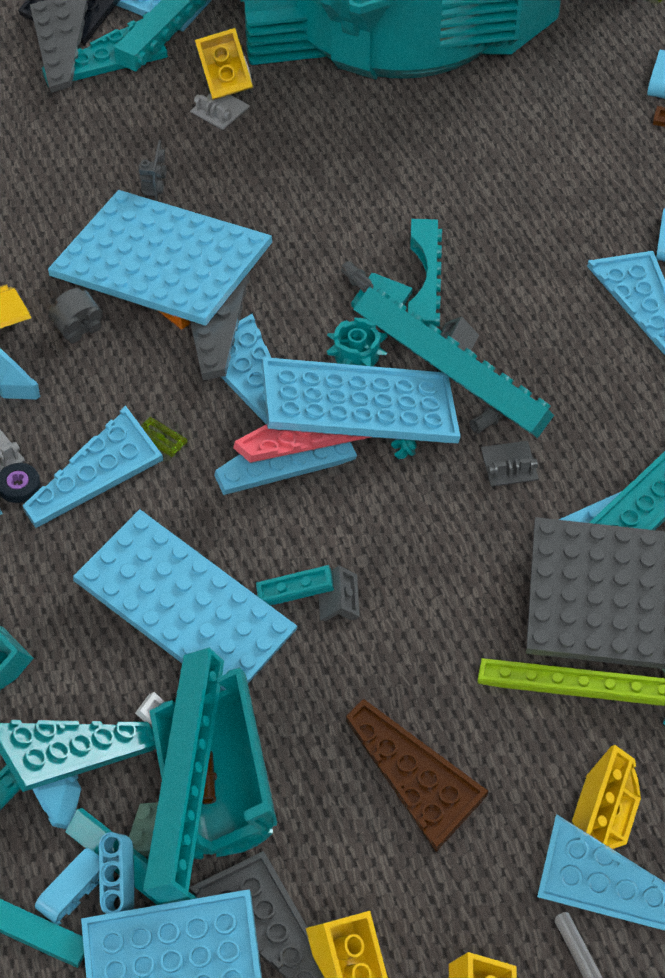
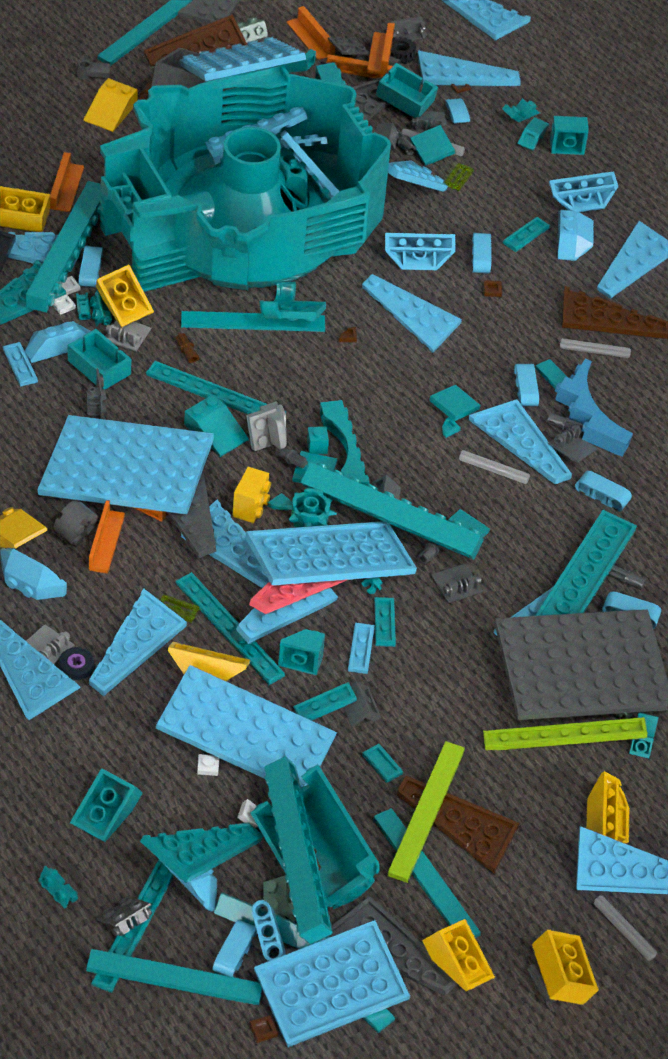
camera: 20 degrees left, 5 degrees down
(87, 125) = (20, 364): none -> medium azure tile
(105, 339) = (105, 539): none -> orange panel
(126, 638) = (208, 764): none -> white plate
(139, 104) = (53, 340): none -> medium azure wedge
(161, 66) = (64, 304): none -> white tile
(166, 507) = (211, 662): none -> yellow wedge
(175, 46) = (71, 285): none -> white tile
(178, 131) = (99, 352): none -> teal piece
(181, 71) = (83, 306): none -> teal bar
(197, 81) = (100, 310): none -> teal hinge
(206, 24) = (90, 266): none -> medium azure beam
(209, 459) = (227, 626): none -> teal tile
(282, 134) = (187, 347): none -> reddish brown axle
(282, 219) = (214, 417): none -> teal slope
(286, 516) = (302, 651): none -> teal slope
(290, 315) = (251, 495): none -> yellow brick
(298, 191) = (203, 388): none -> teal tile
(324, 328) = (279, 502): none -> teal tile
(339, 237) = (268, 427): none -> light grey piece
(342, 676) = (382, 763): none -> teal tile
(348, 834) = (426, 874): none -> teal tile
(364, 524) = (361, 648): none -> medium azure tile
(369, 115) = (250, 321): none -> teal tile
(370, 753) = (426, 812): none -> lime tile
(394, 262) = (317, 440): none -> teal brick
(404, 496) = (384, 621): none -> teal tile
(414, 102) = (286, 307): none -> teal piece
(475, 147) = (349, 335): none -> reddish brown tile
(543, 388) = (469, 522): none -> teal tile
(561, 272) = (450, 427): none -> teal tile
(565, 136) = (418, 316): none -> medium azure wing
(576, 243) = (454, 402): none -> teal tile
(589, 60) = (419, 250): none -> medium azure wedge
(601, 328) = (494, 466): none -> light grey axle

